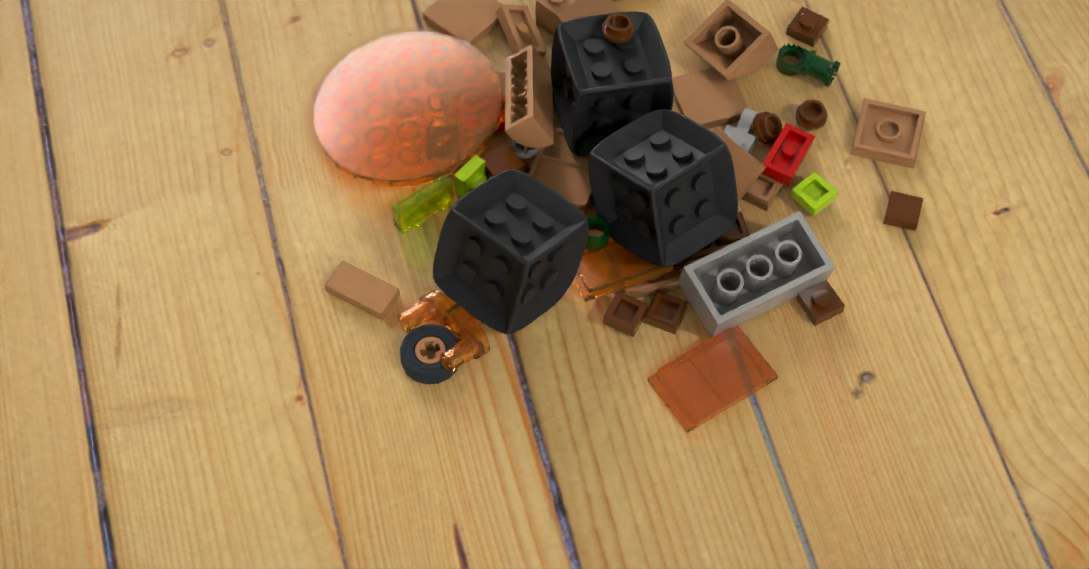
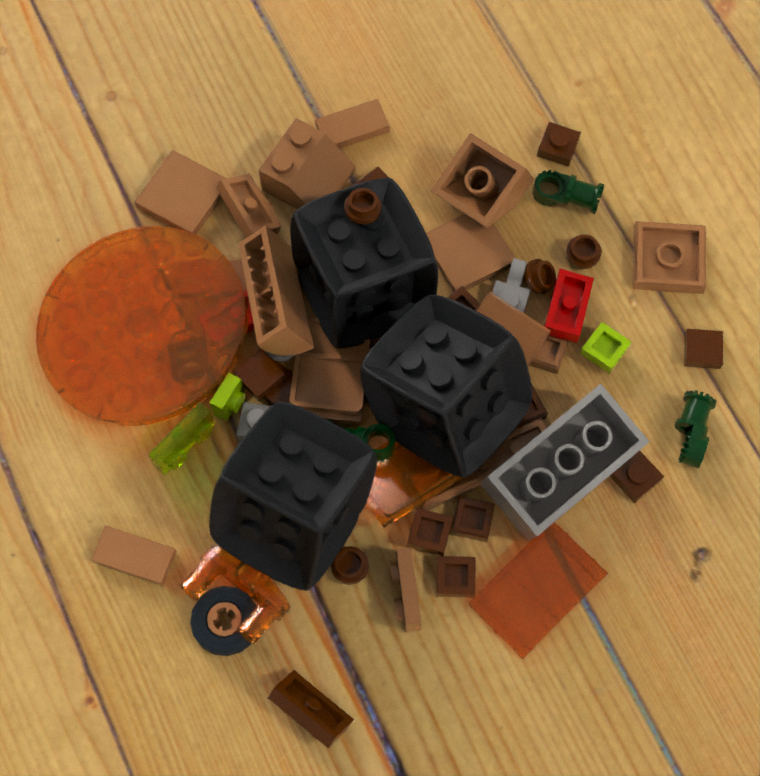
camera: 10 degrees left, 10 degrees up
(490, 434) = (310, 709): none -> reddish brown plate
(549, 329) = (350, 565): none -> reddish brown plate
(593, 367) = (408, 605): none -> medium nougat plate
(641, 355) = (456, 576): none -> reddish brown tile
(880, 269) = (693, 425): none -> dark green connector

